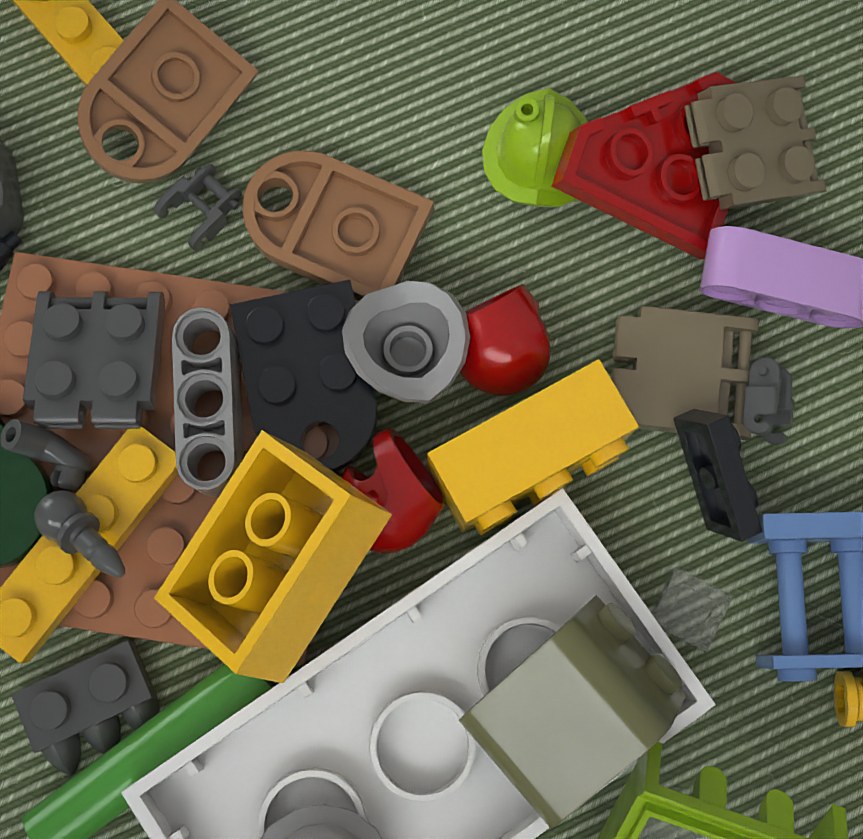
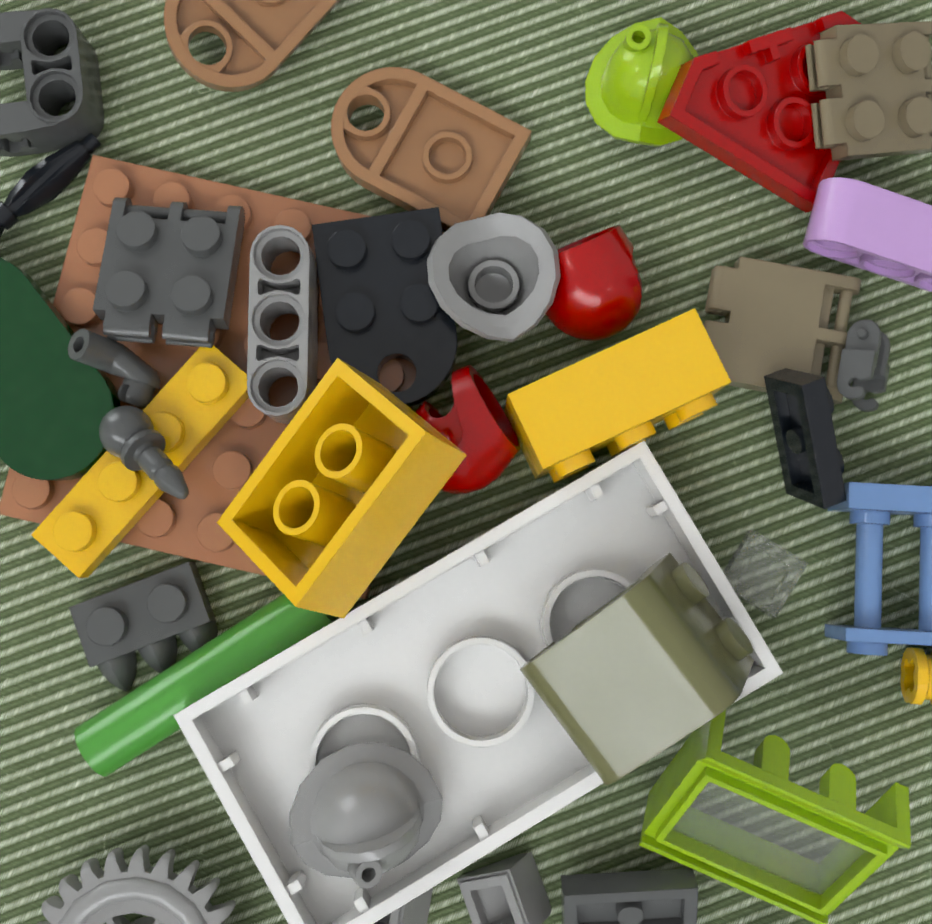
camera: 10 degrees right, 5 degrees up
(187, 191) = (274, 103): dark grey piece -> none

